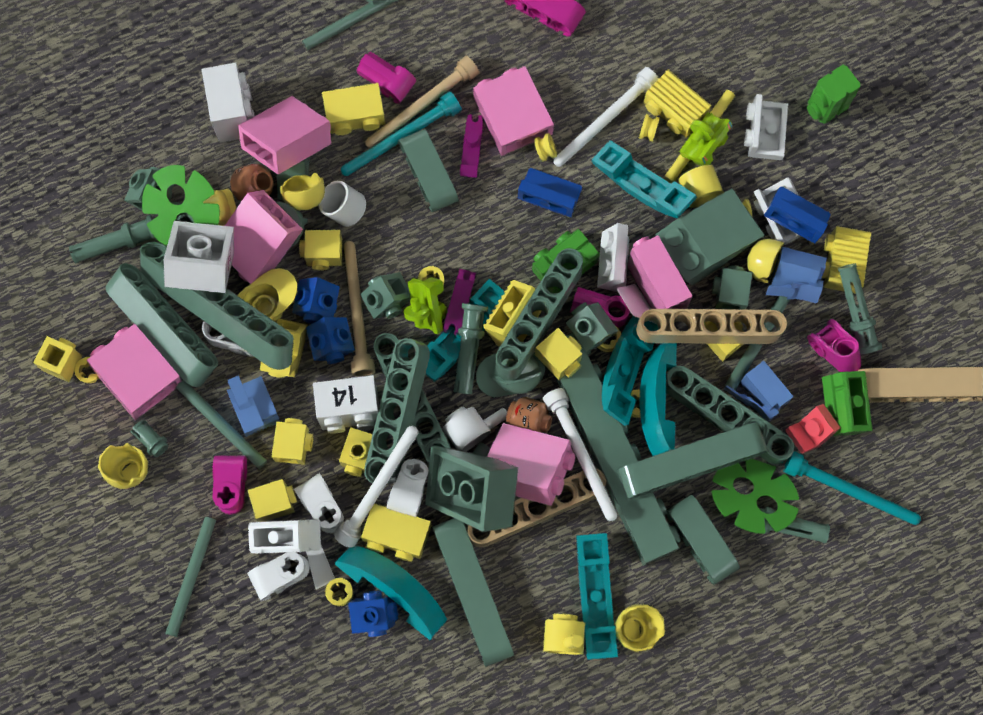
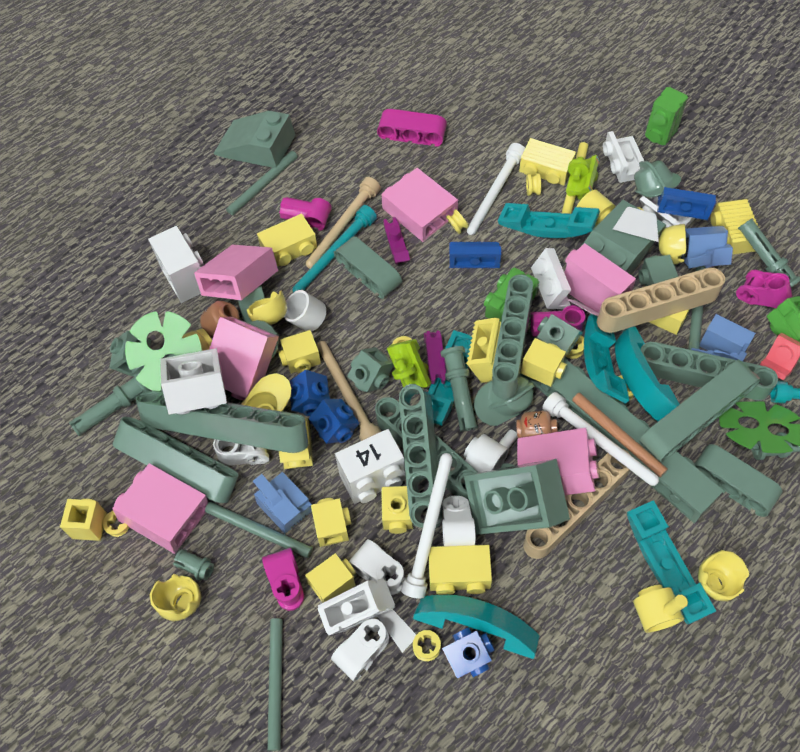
camera: 15 degrees left, 15 degrees down
(473, 591) = (556, 599): sand green beam -> none
(602, 456) = (620, 435): none -> nougat bar
(733, 225) = (638, 223): none -> white sticker
(781, 174) = (653, 178): none -> sand green piece

